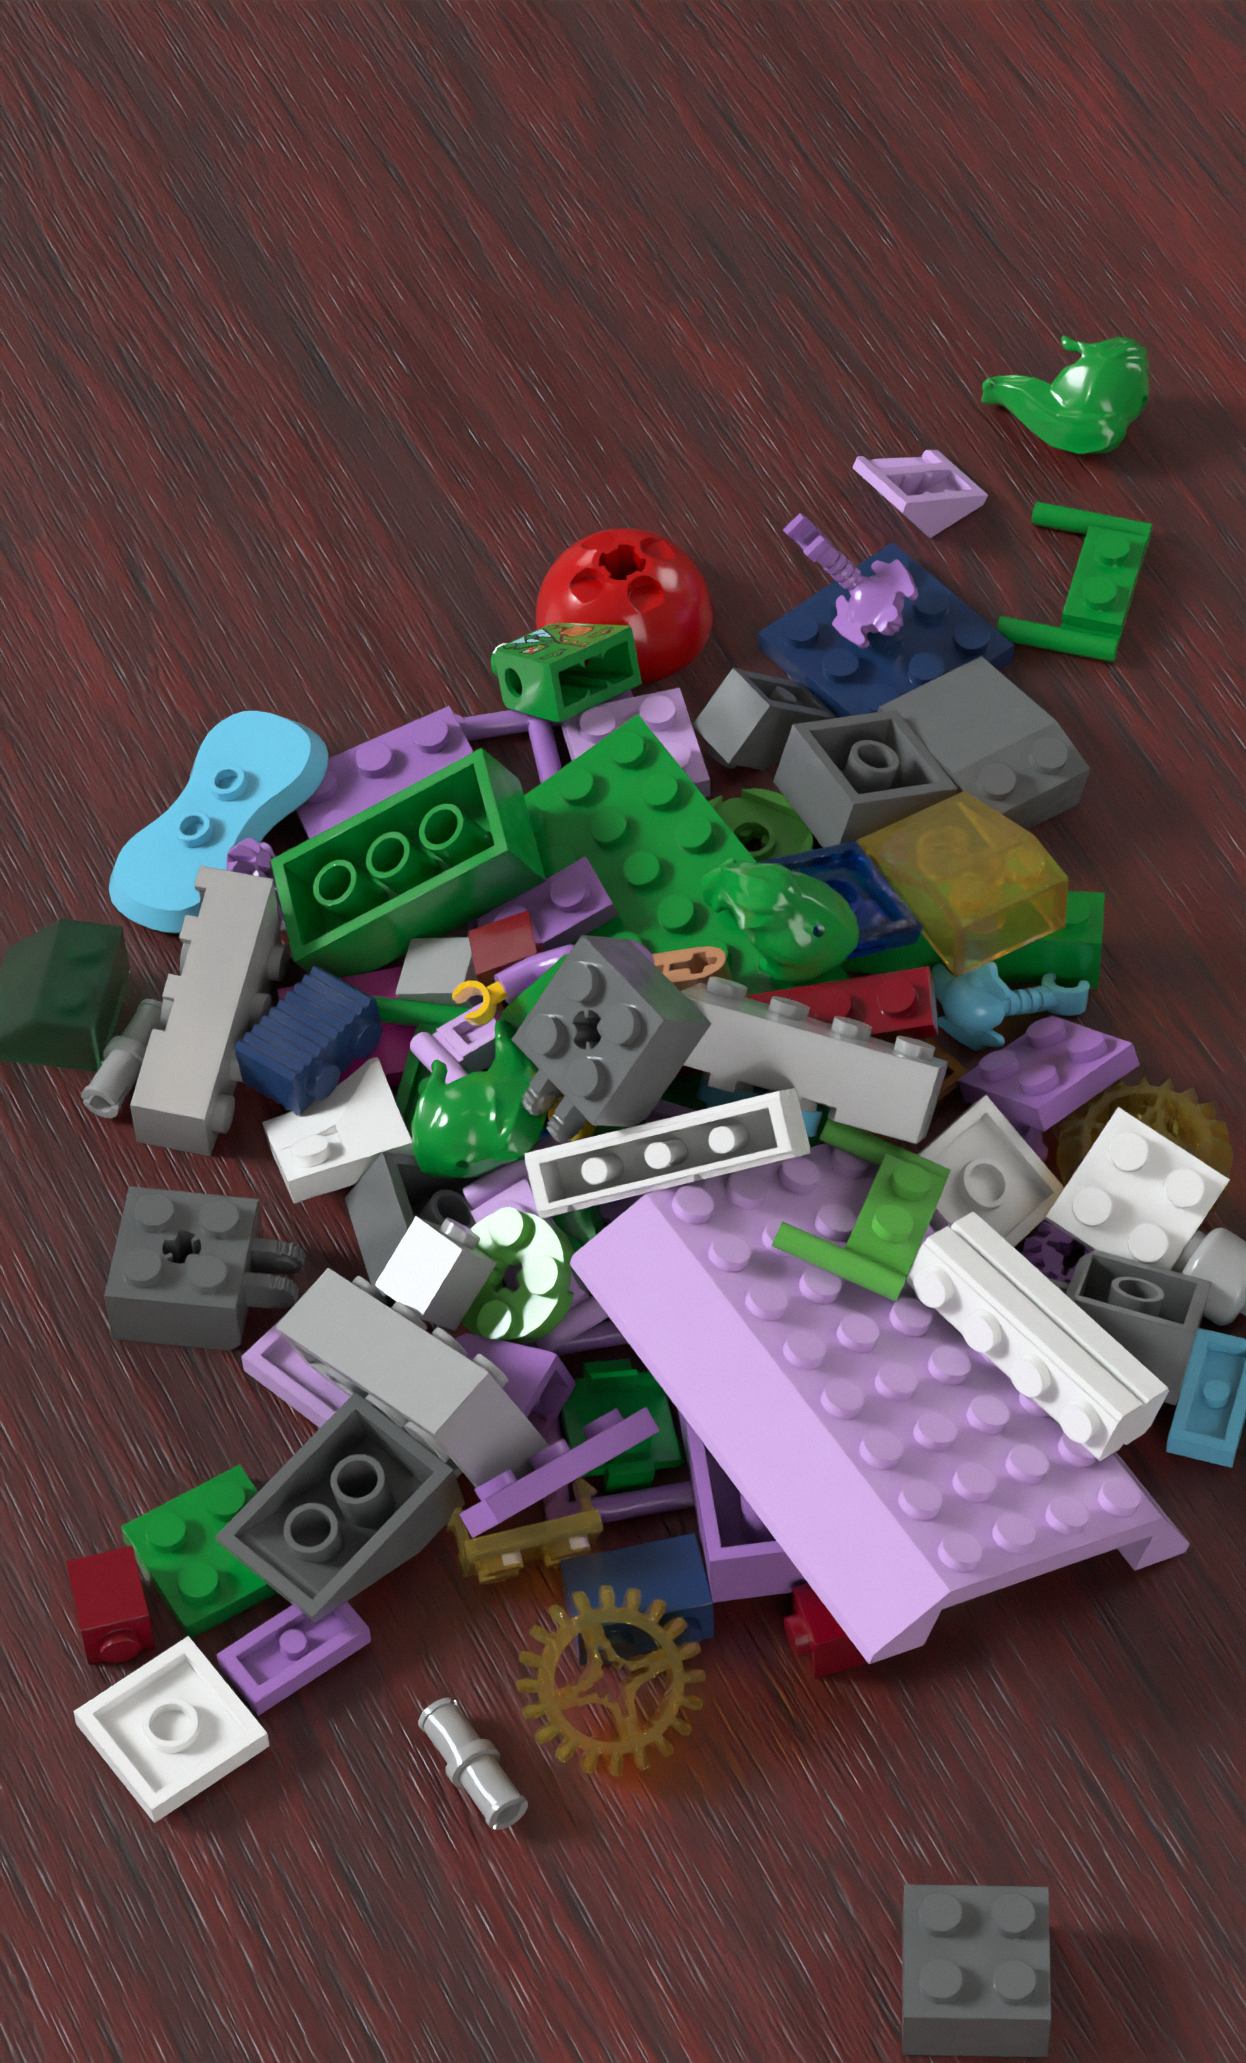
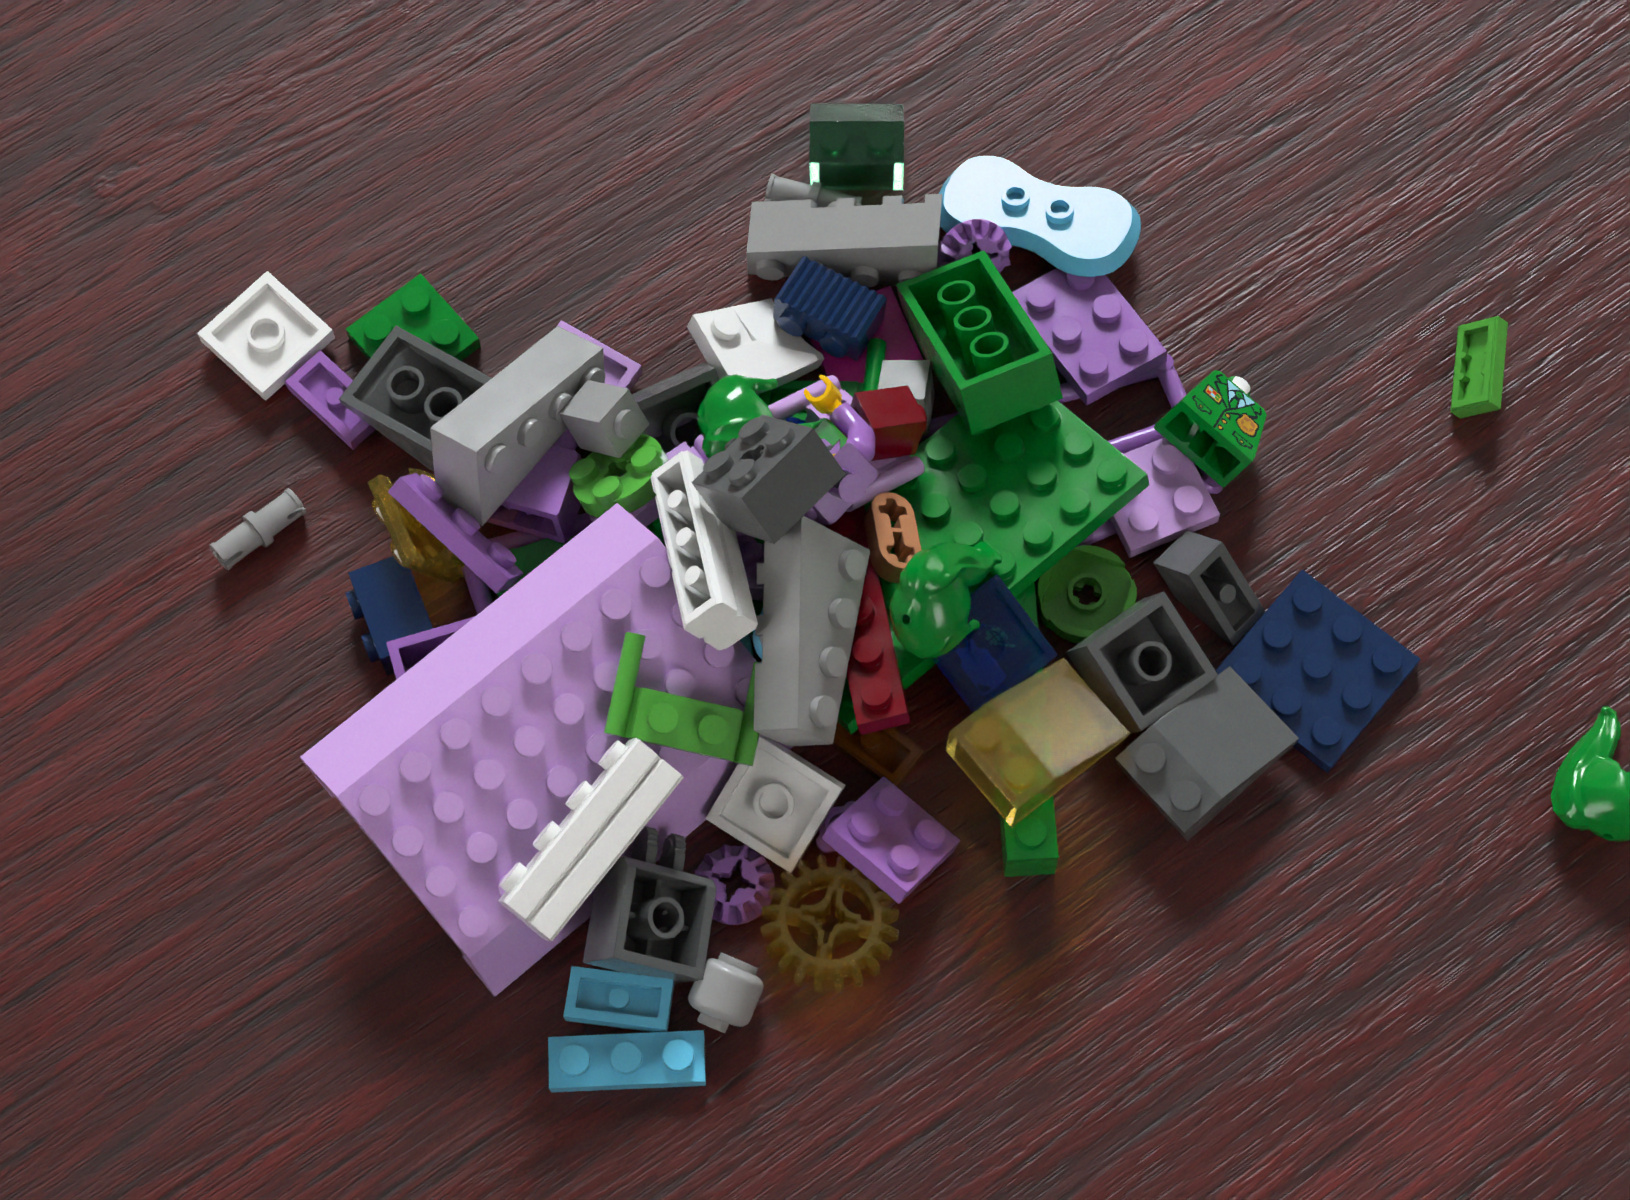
camera: 80 degrees right, 15 degrees up
(110, 1606) = (352, 278): dark red brick -> none
(191, 1267) = (629, 271): dark grey hinge -> none
(532, 427) = (1479, 367): none -> bright green plate
(561, 907) = (956, 452): medium lavender plate -> none
(632, 1736) = (324, 602): clear yellow gear -> none
(633, 582) = (1303, 489): red piece -> none
(874, 600) = (1333, 643): medium lavender piece -> none
(924, 488) = (1484, 669): lavender slope -> none
(976, 1971) = (117, 879): dark grey brick -> none
(981, 1000) = (947, 783): medium azure piece -> none
(1100, 586) = (1416, 830): green plate -> none
(1136, 1195) = (766, 913): white plate -> none

